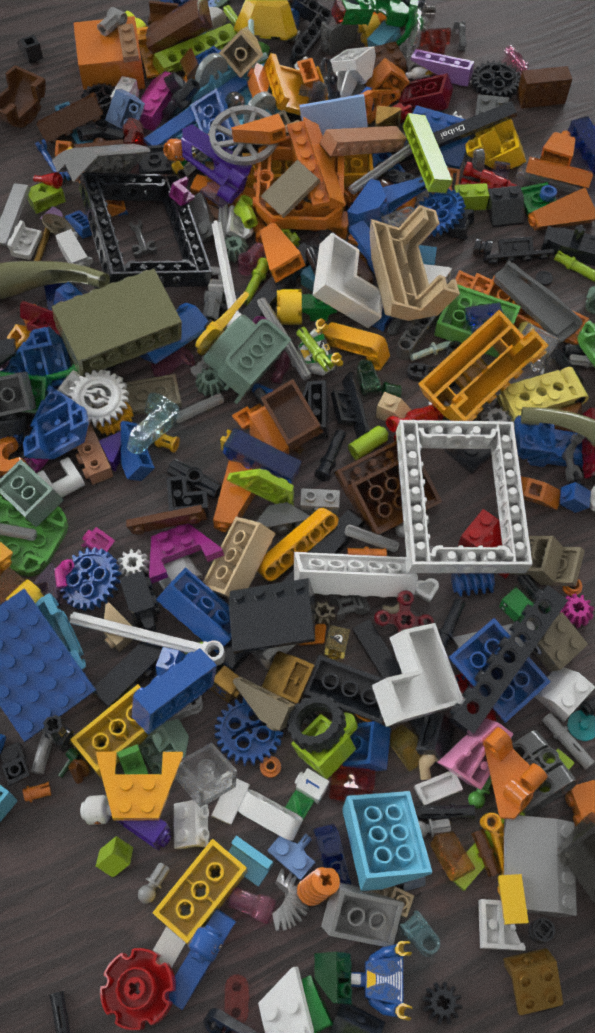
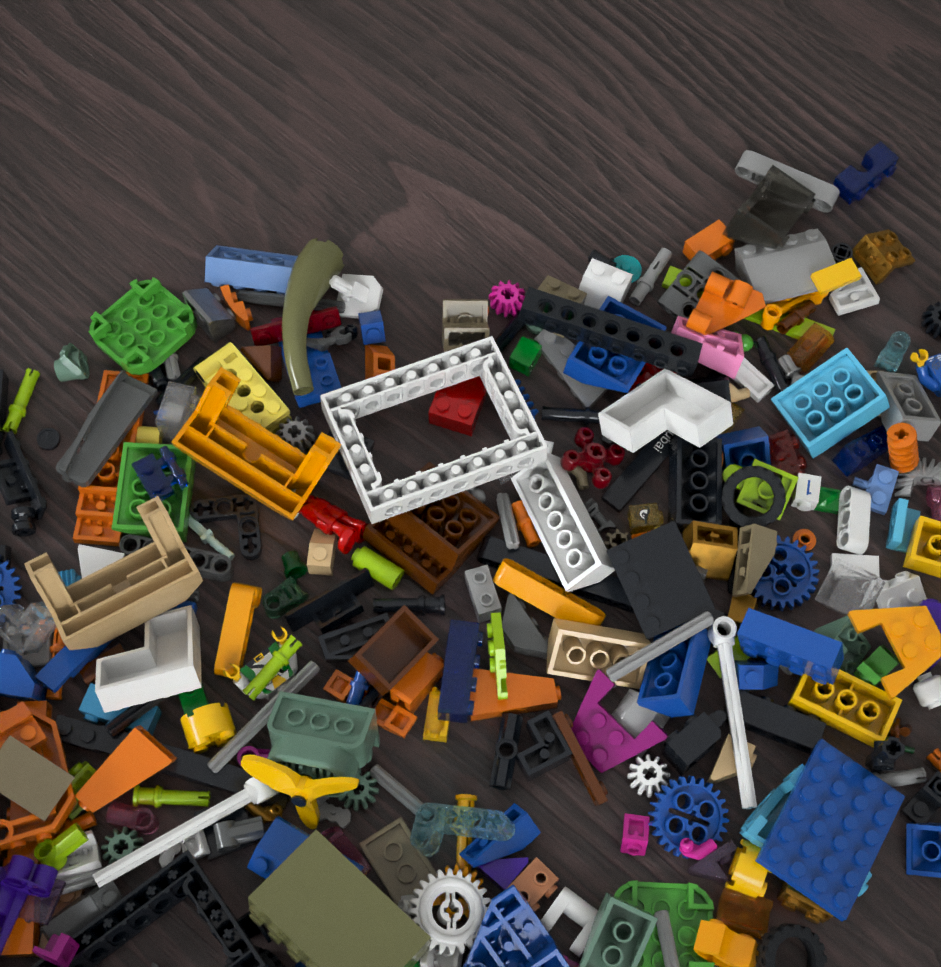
camera: 110 degrees left, 5 degrees up
(220, 598) = (660, 646): none -> light grey axle

